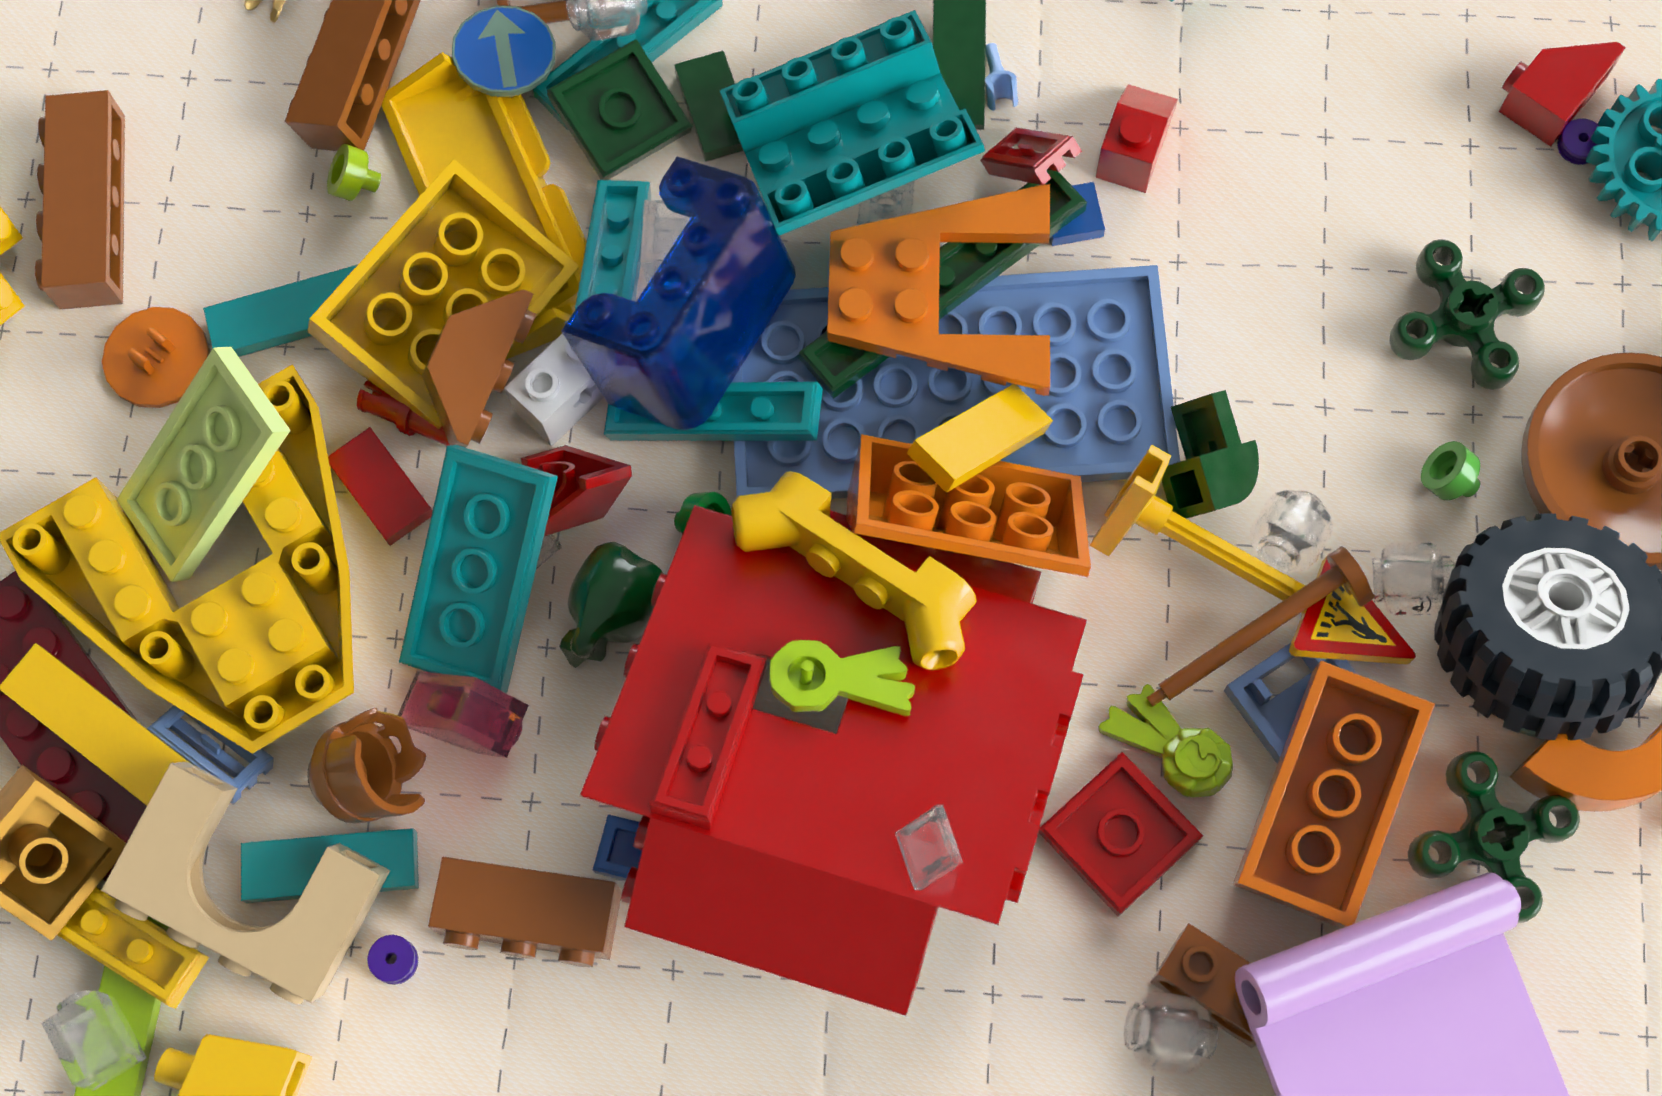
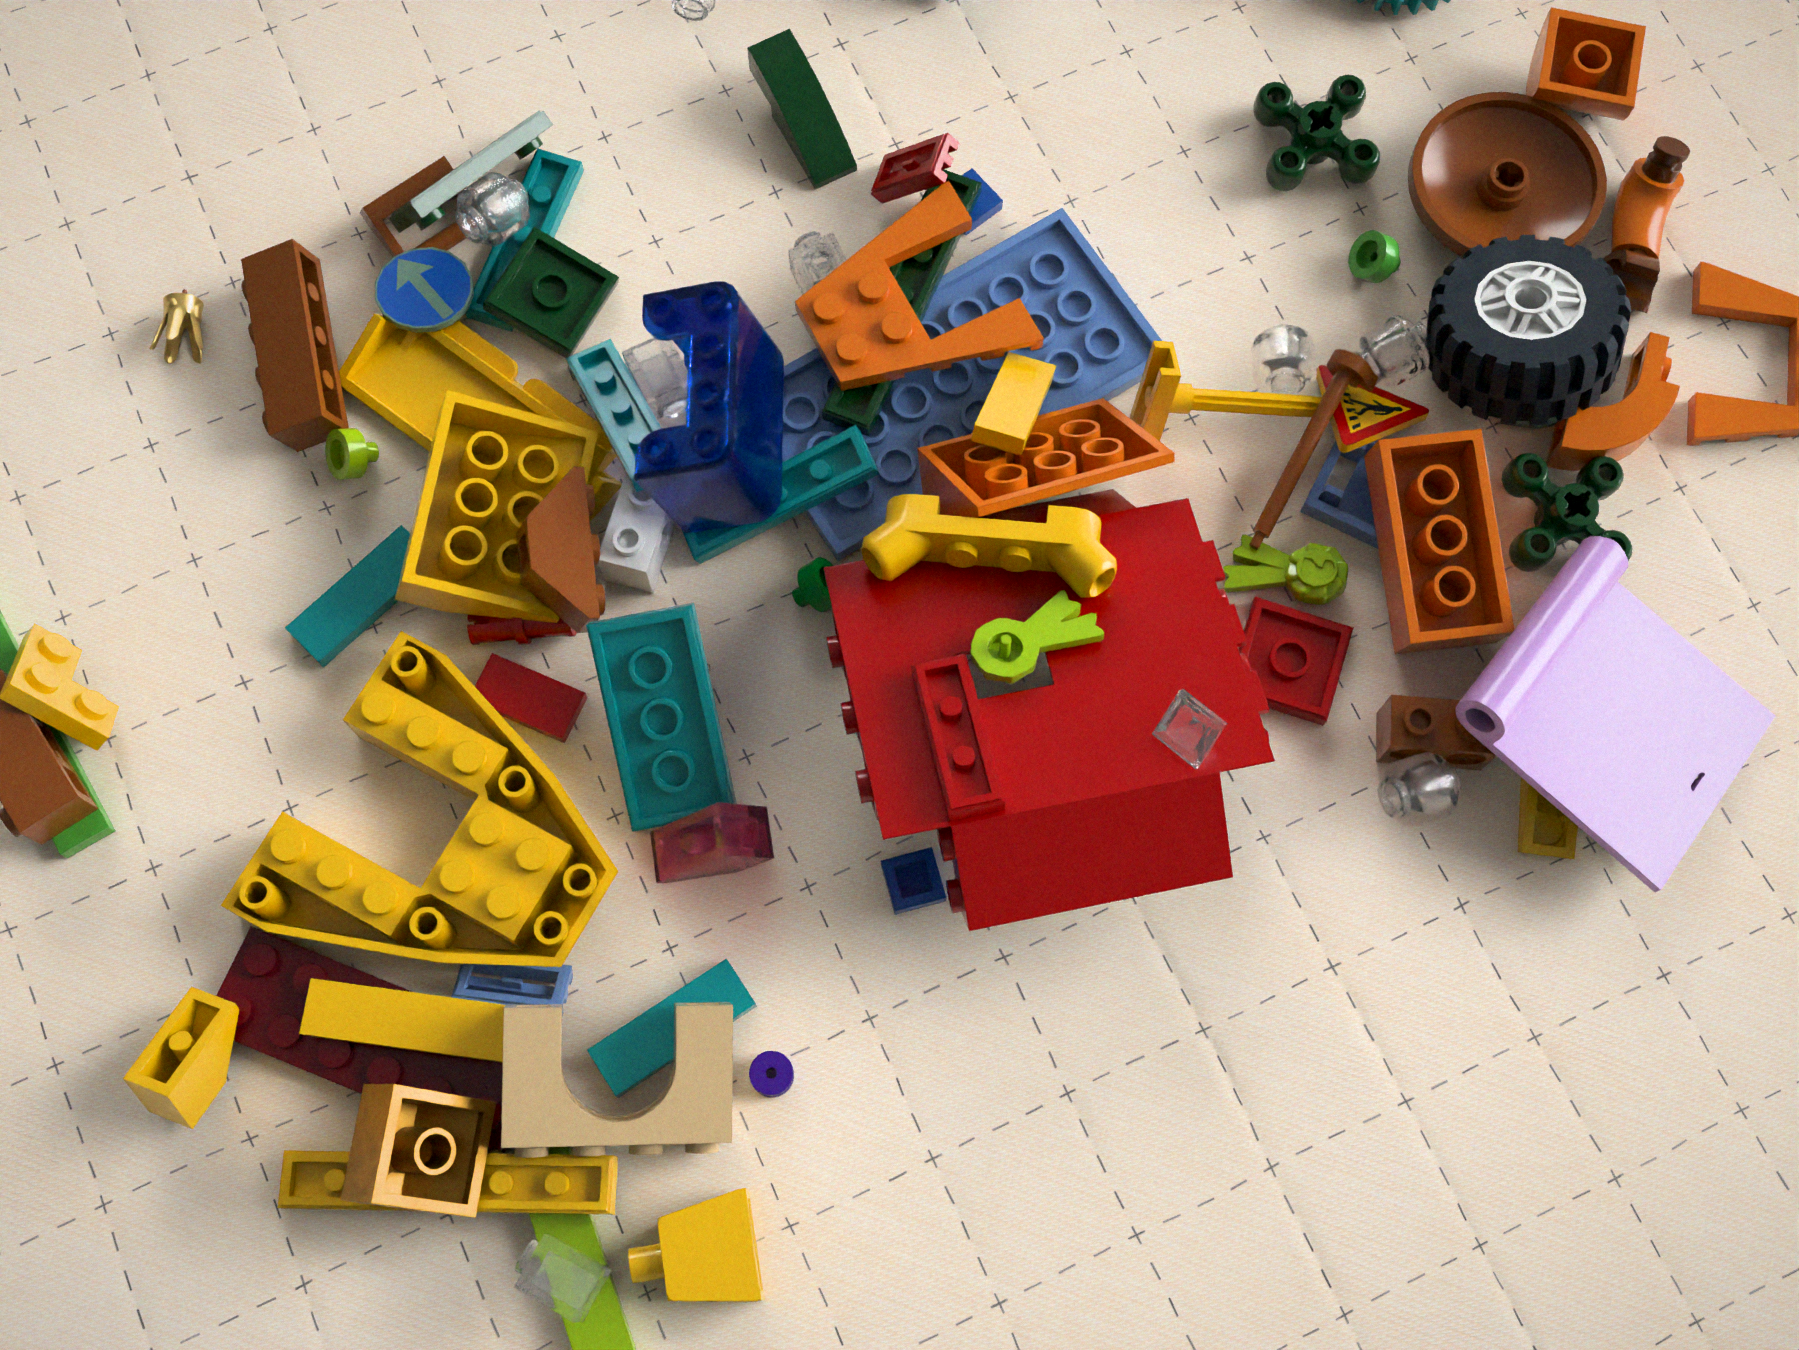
camera: 35 degrees left, 0 degrees up
(82, 200) = (120, 590): dark orange brick -> none
(154, 356) = (263, 691): orange piece -> none
(202, 463) = (375, 750): yellowish green plate -> none
(361, 773) = (655, 937): dark orange helmet -> none
(525, 911) = (862, 972): dark orange brick -> none
(584, 485) = (714, 599): red slope -> none
(608, 602) = (786, 685): dark green piece -> none
(700, 86) = (626, 252): dark green tile -> none
(849, 122) = (758, 207): teal slope -> none
(999, 82) = (852, 125): light blue hand -> none
(1135, 137) = (985, 119): red slope -> none
(1217, 465) = (1201, 335): dark green brick -> none

